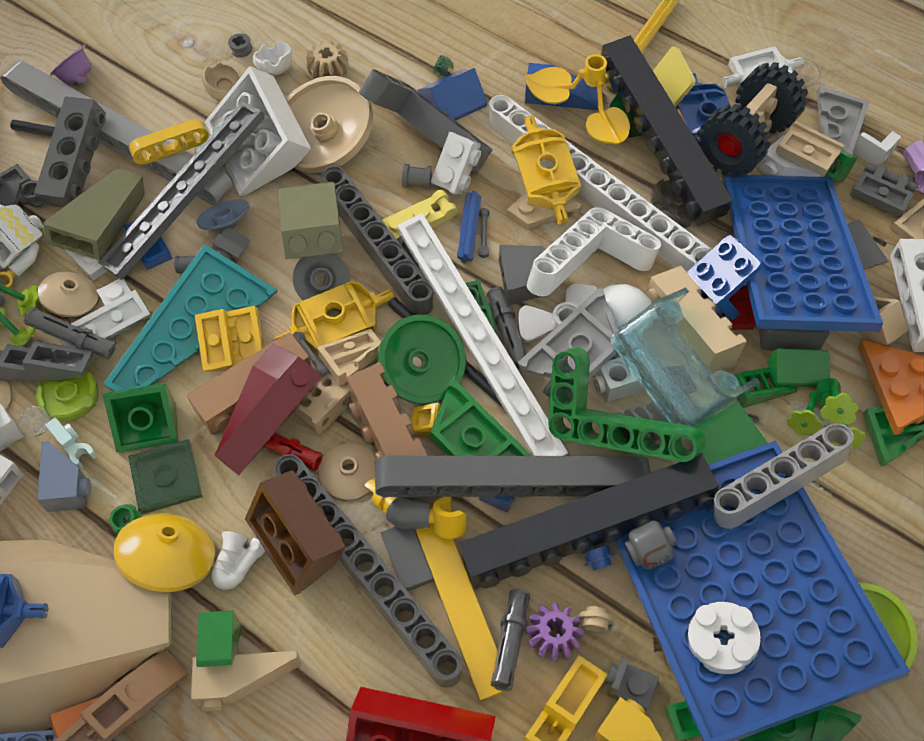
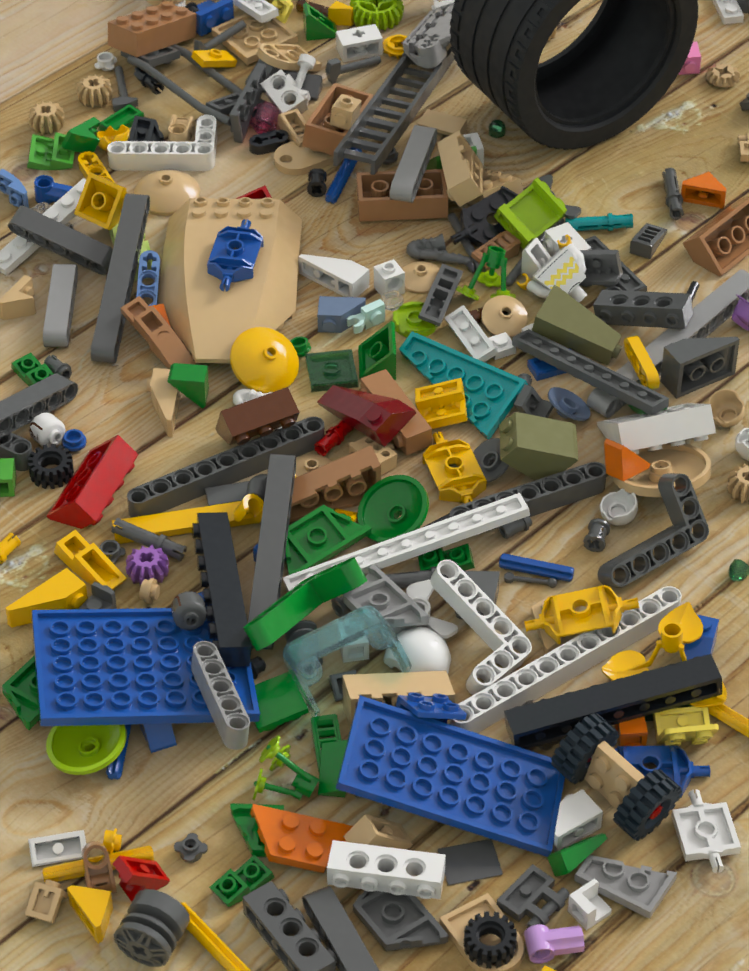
camera: 100 degrees right, 15 degrees down
(65, 331) = (453, 317): dark grey pin -> none
(162, 100) = (698, 363): none -> dark grey slope
(321, 369) = (395, 448): dark grey hinge -> none
(332, 144) = (622, 462): none -> orange slope
(349, 354) = (408, 464): tan wing -> none
(378, 157) = (619, 507): none -> white hair
(427, 207) = (552, 535): light yellow plate -> none
(456, 163) = (598, 556): white bracket -> none
(457, 93) = (699, 574): blue slope -> none
(533, 680) = (112, 550): none -> dark grey plate
(737, 622) = (116, 629): white plate -> none
(809, 148) = (572, 817): tan plate -> none

